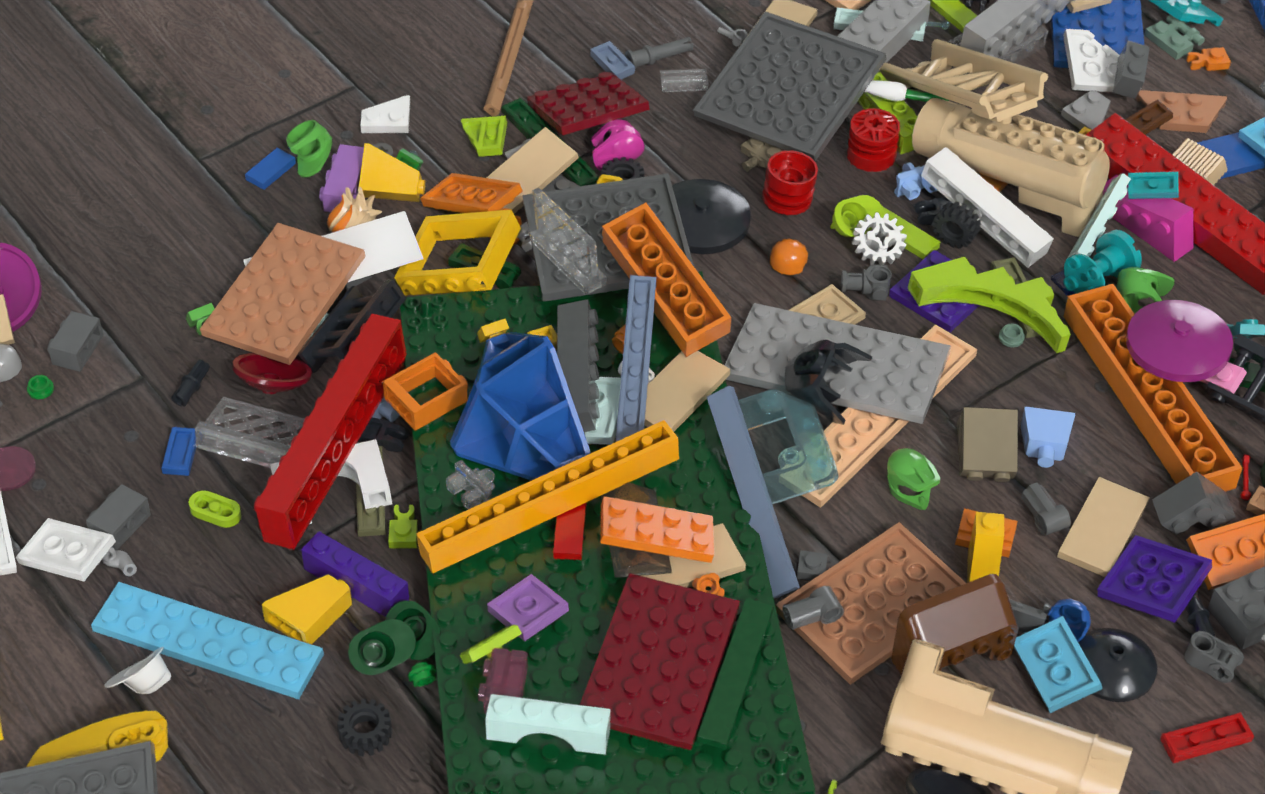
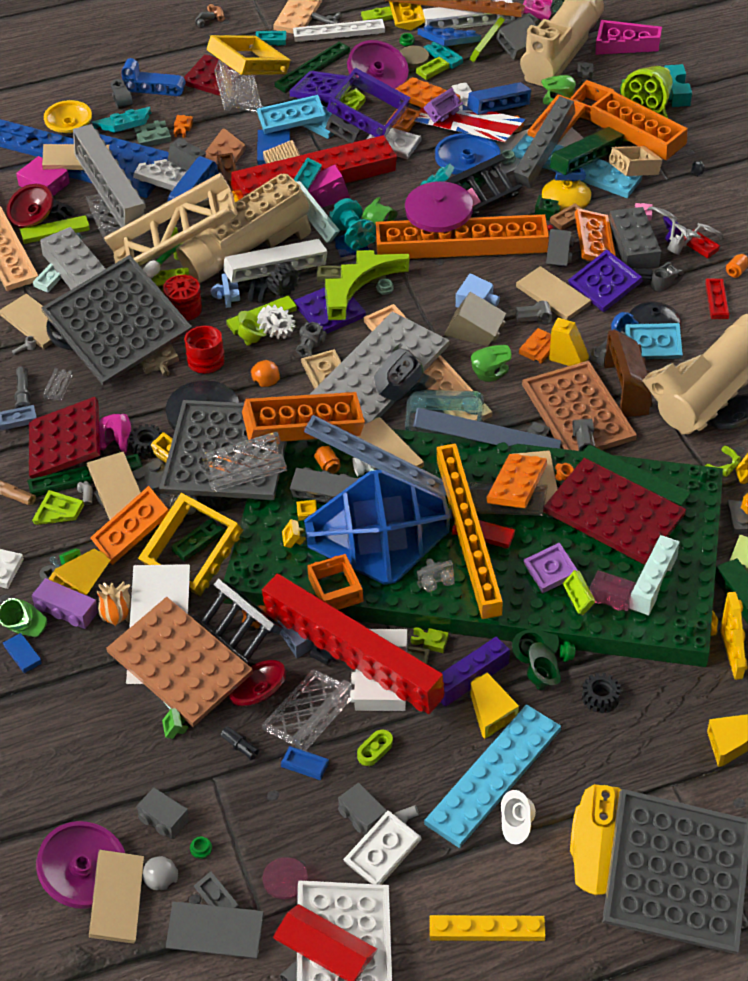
camera: 70 degrees left, 0 degrees up
(1090, 90) = (200, 171): none -> blue beam

